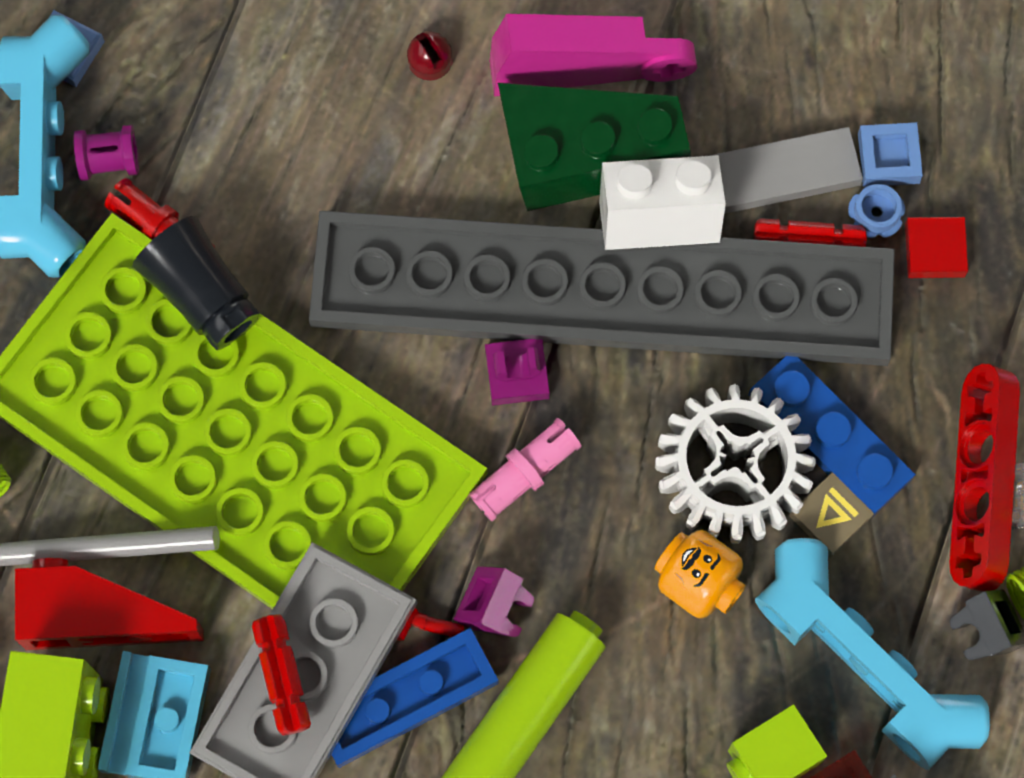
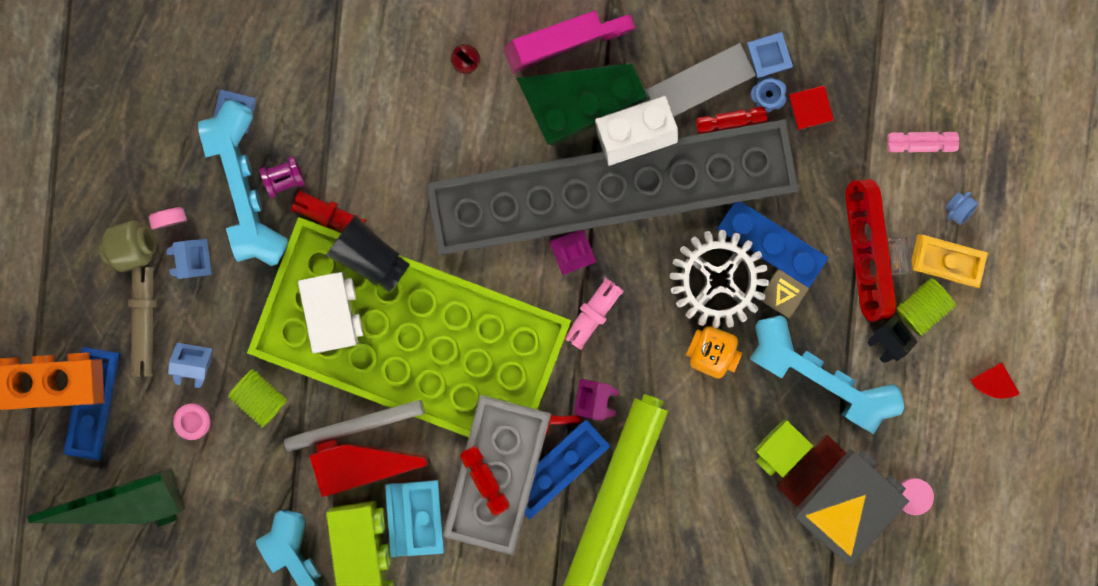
camera: 20 degrees left, 15 degrees up
(115, 356) = (330, 312): none -> white brick

